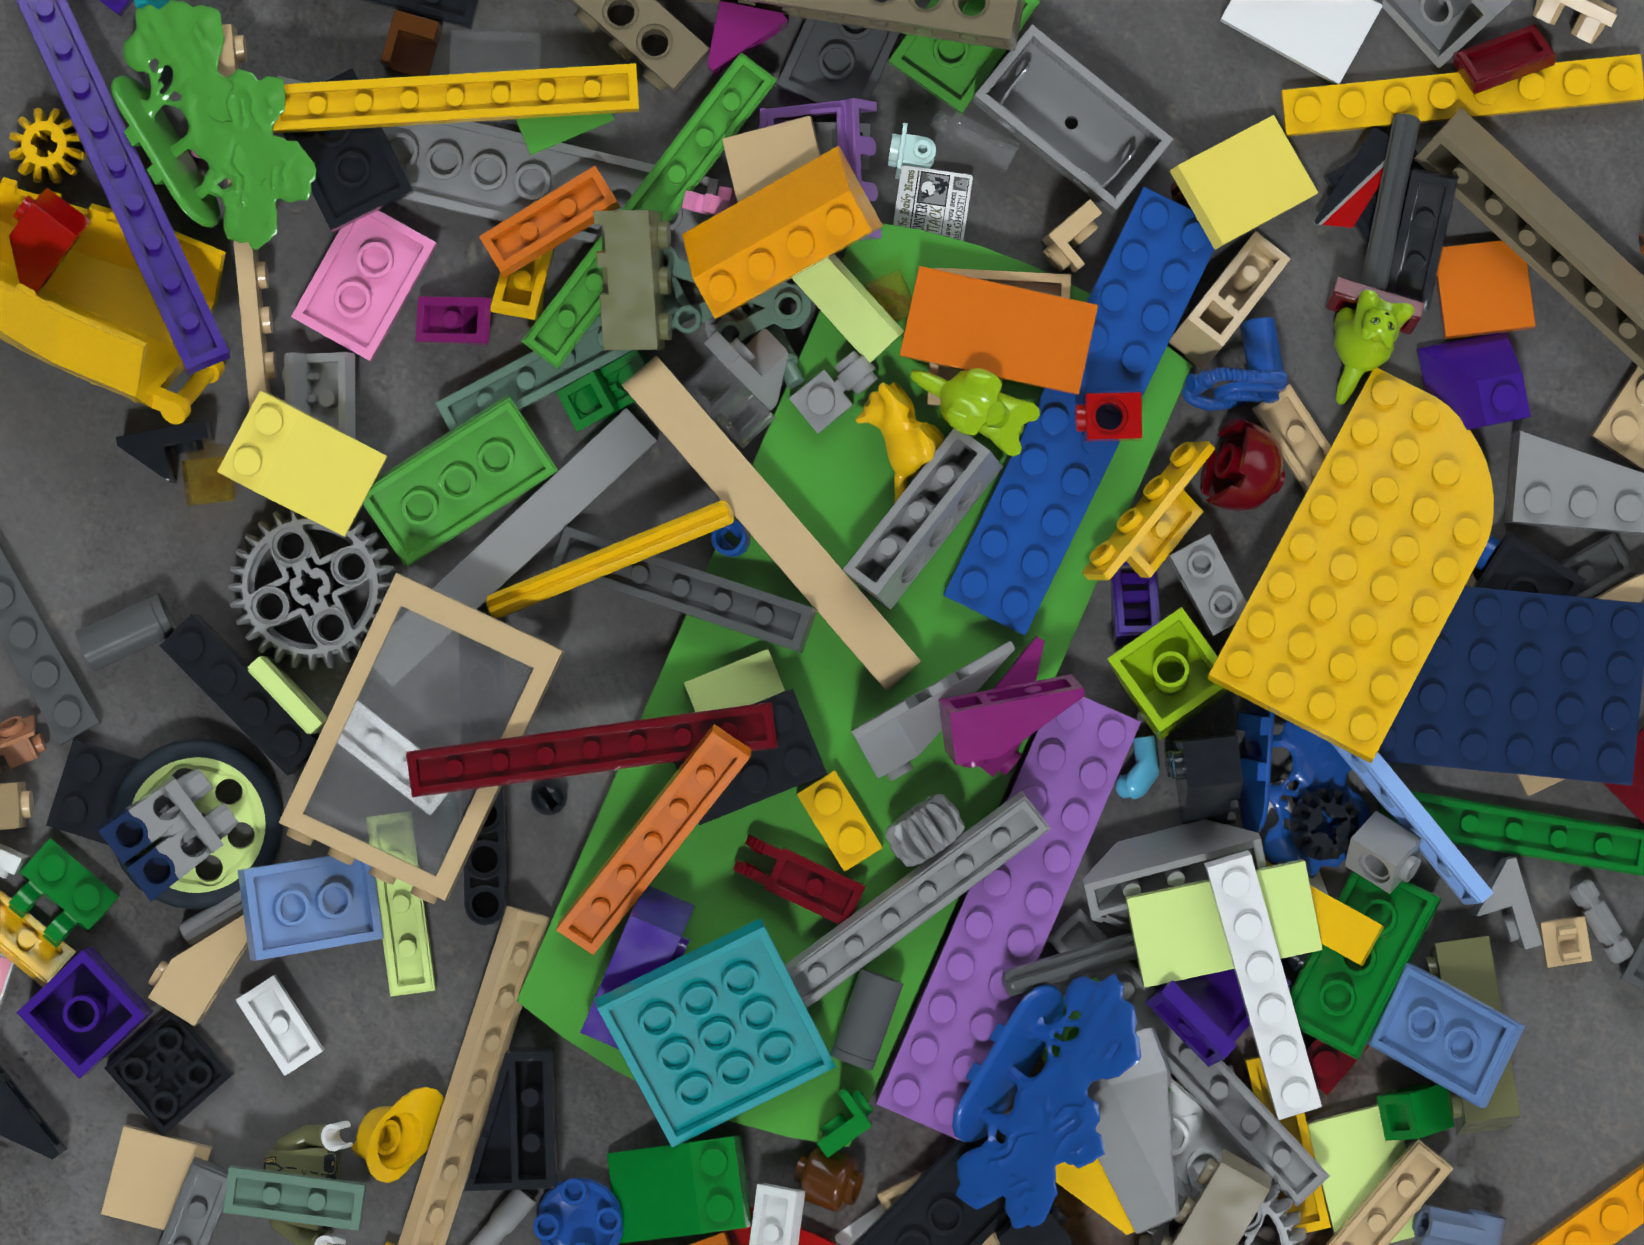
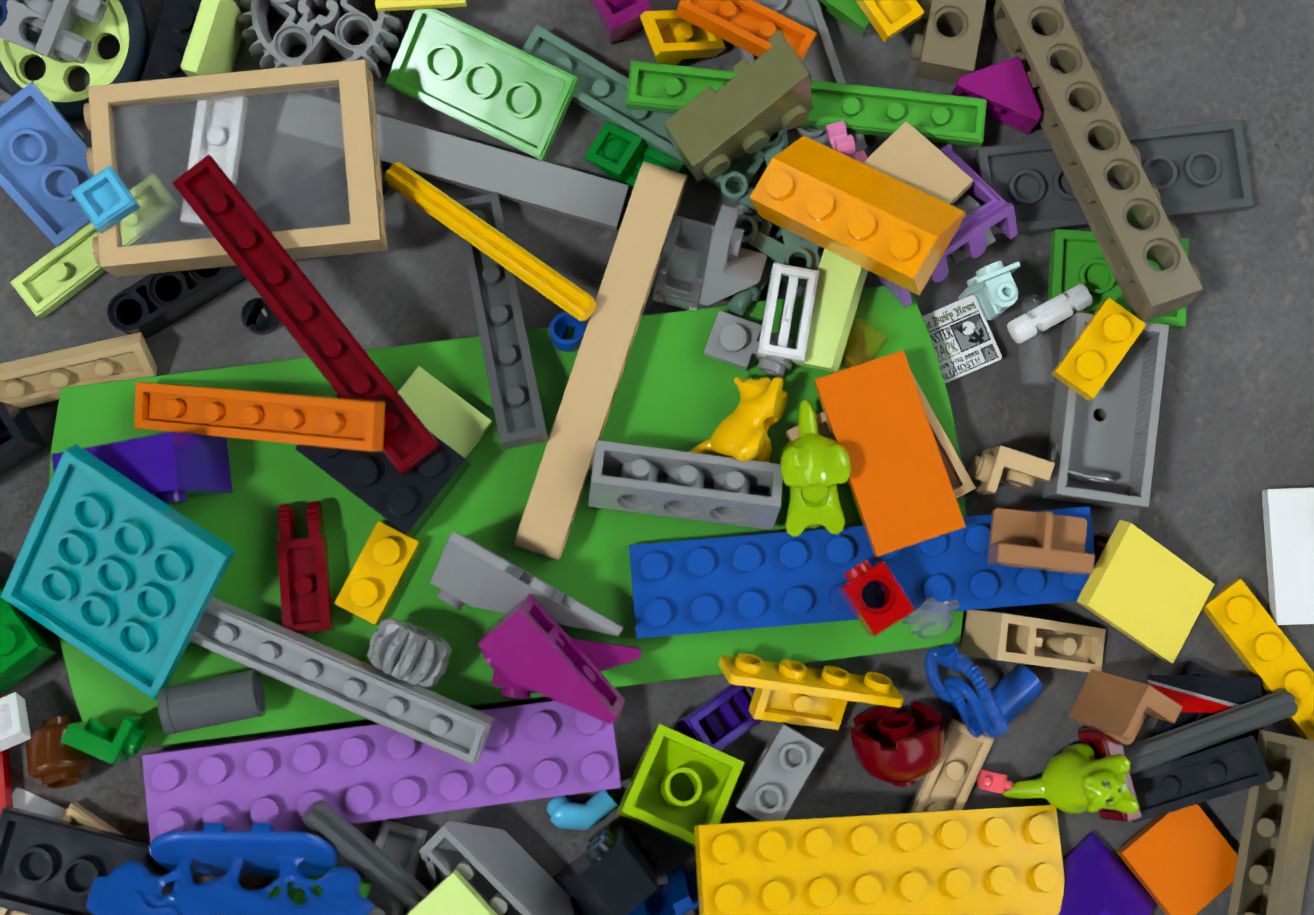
camera: 55 degrees right, 5 degrees down
(390, 862) = (105, 199): none -> medium azure tile
(798, 317) = (781, 351): none -> white tile
(960, 115) = (1049, 313): none -> white axle
(1016, 99) = (1098, 349): none -> yellow plate
(1146, 250) = (1039, 541): none -> medium nougat panel
(1156, 378) = (931, 618): none -> clear plate
(1323, 265) = (1120, 705): none -> medium nougat panel
(1324, 406) = (993, 781): none -> coral piece

